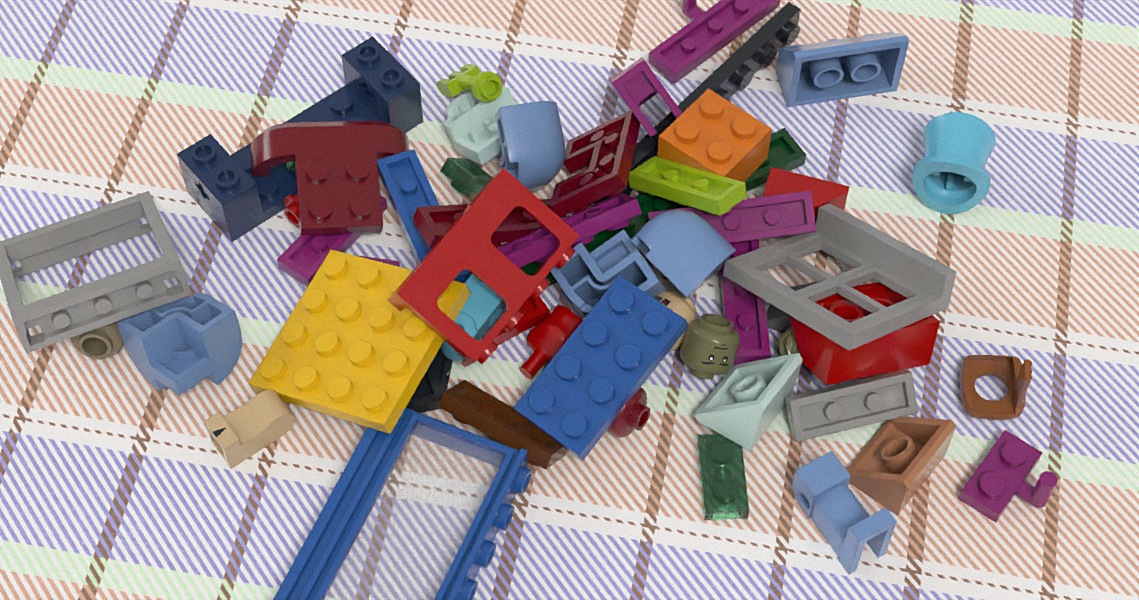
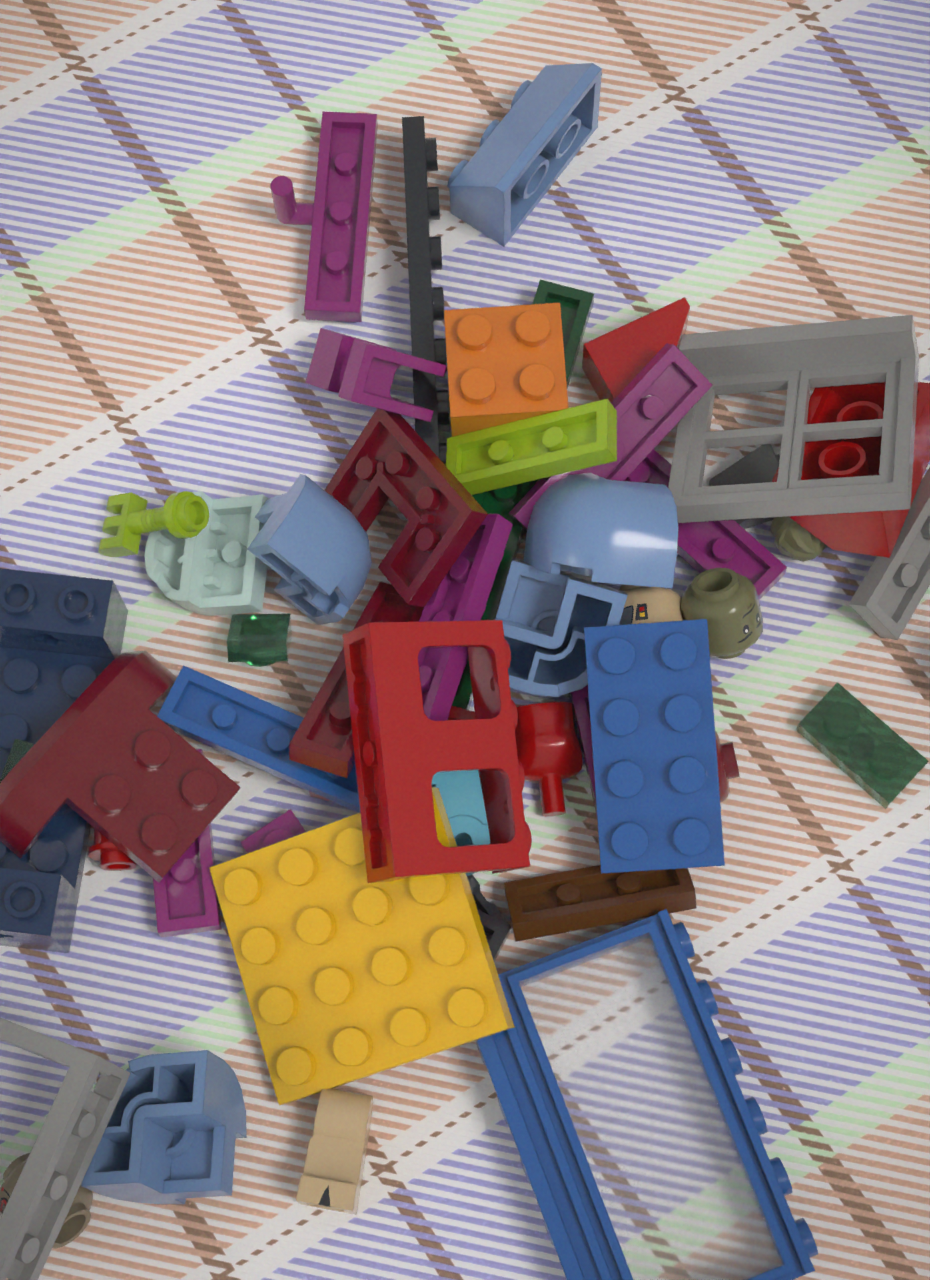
camera: 40 degrees left, 15 degrees up
(750, 398) = (817, 636): light aqua slope -> none
(953, 171) = (759, 174): medium azure hat -> none

